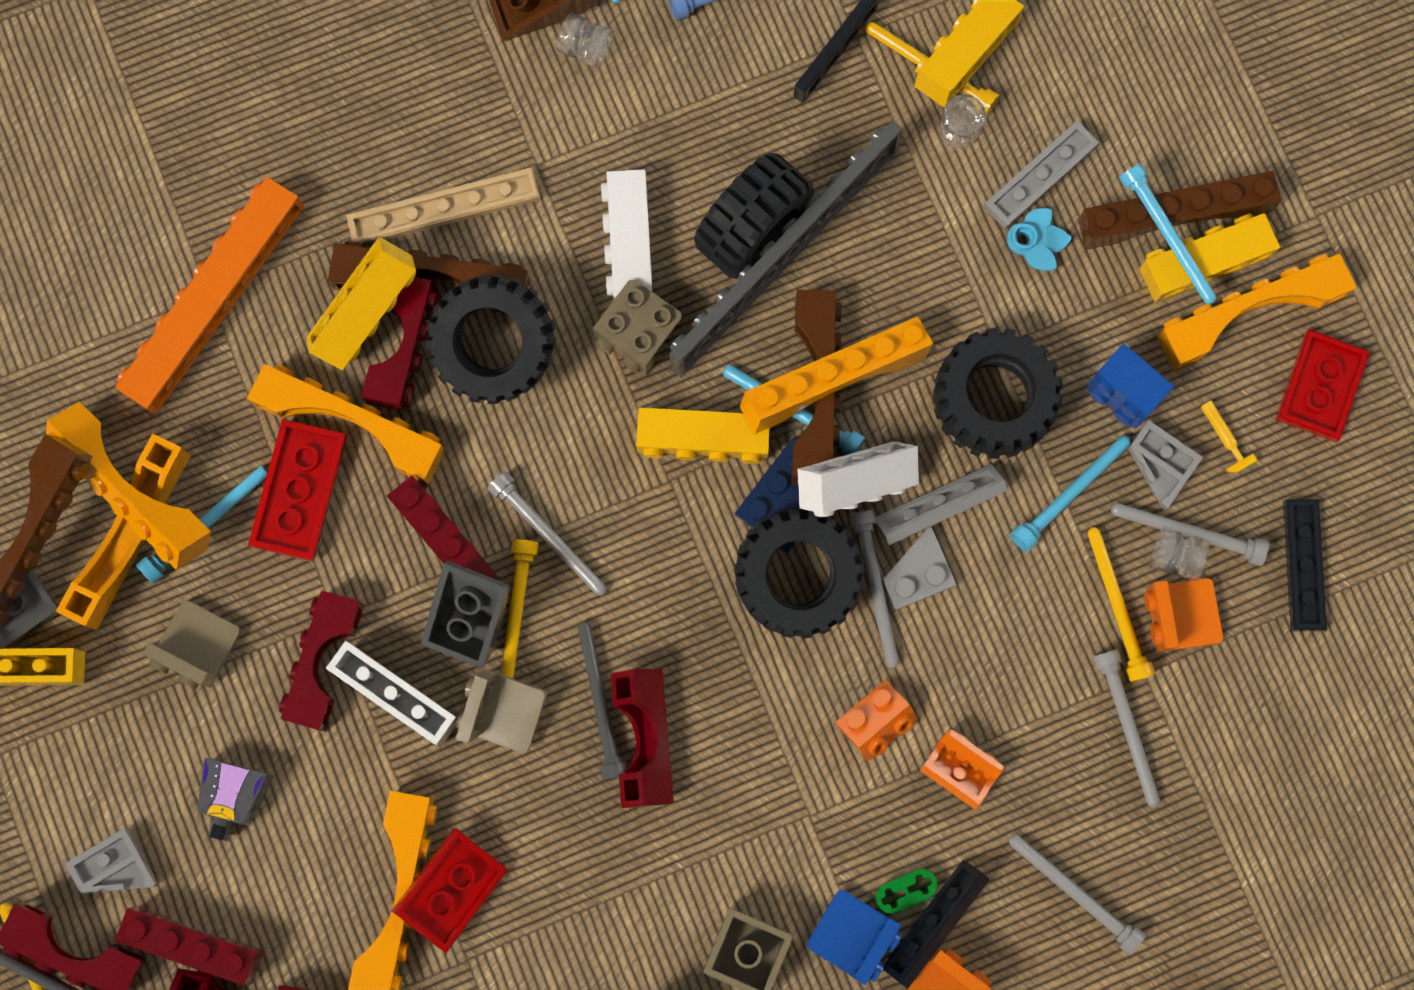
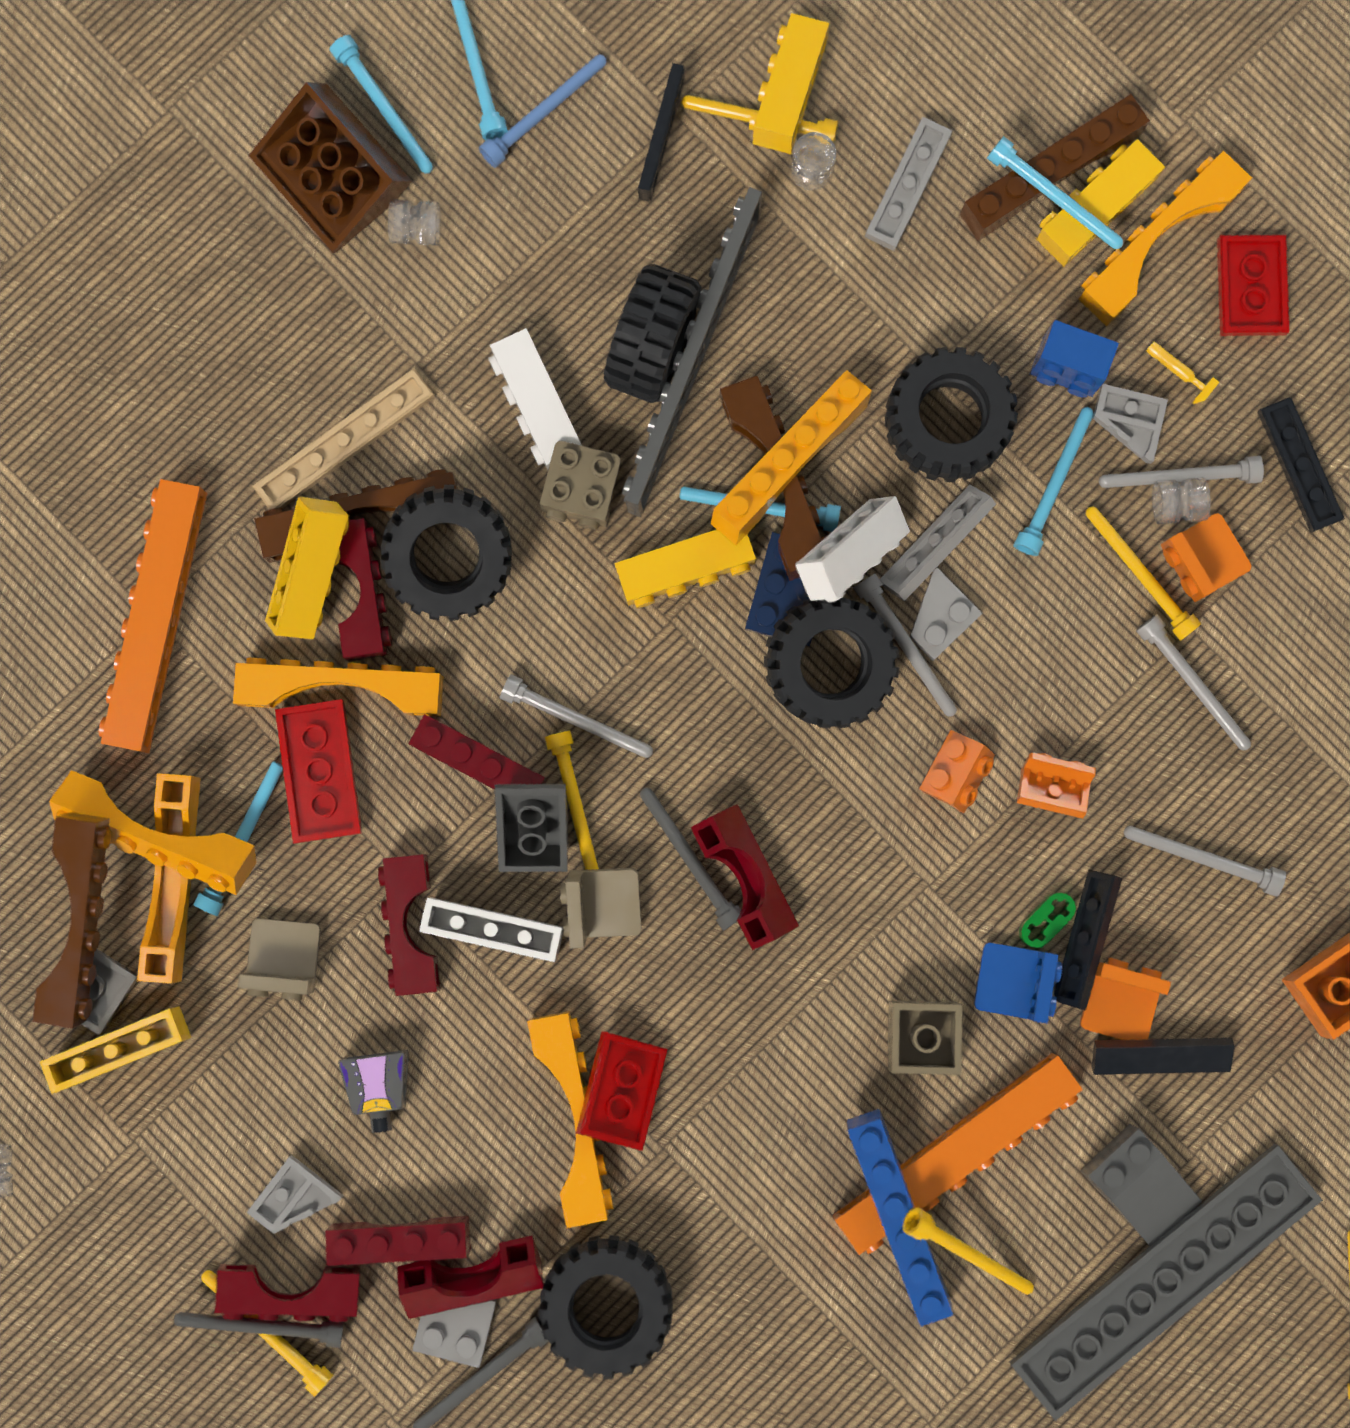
camera: 20 degrees left, 5 degrees up
(1042, 239) = (934, 248): medium azure plate -> none

